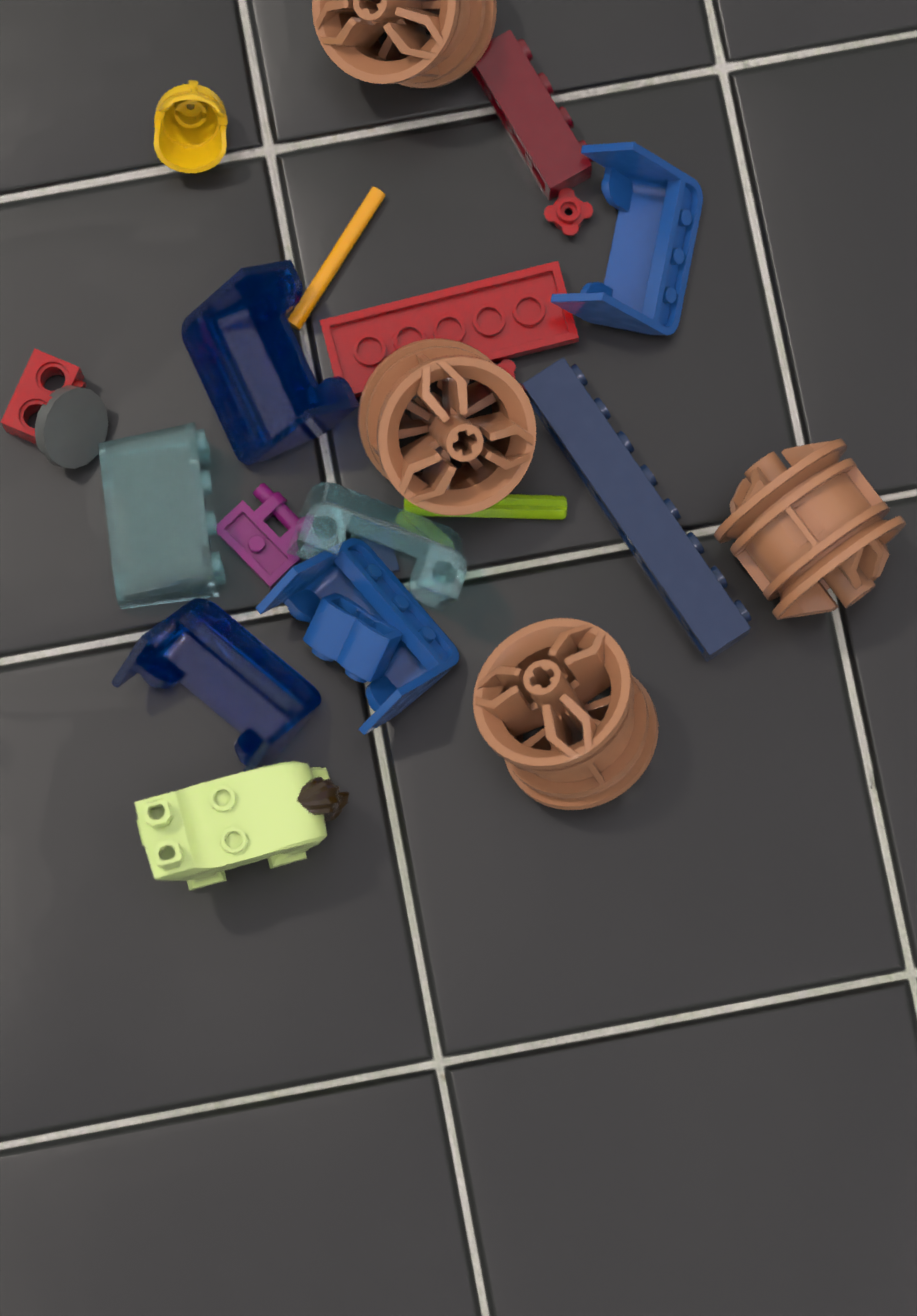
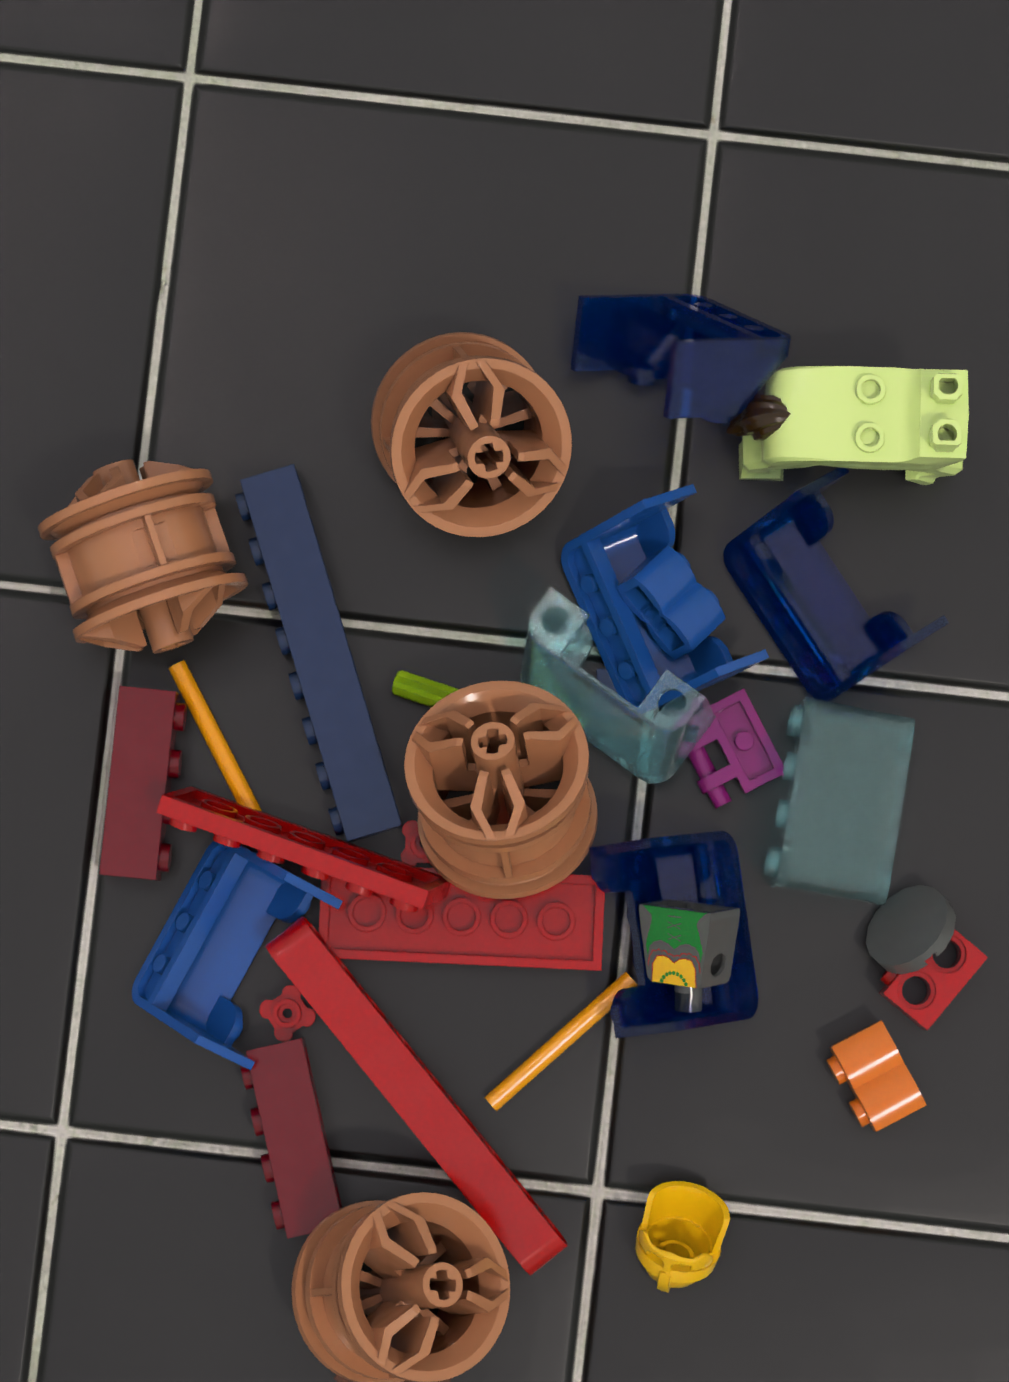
camera: 160 degrees left, 5 degrees up
(67, 304) = (876, 1076): none -> orange brick
(253, 356) = (688, 947): none -> torso
(398, 865) = (703, 348): none -> clear blue windscreen
(442, 174) = (416, 1095): none -> red beam
(597, 335) = (316, 852): none -> red plate
(694, 409) = (212, 735): none -> light orange bar
(750, 357) = (139, 774): none -> dark red brick

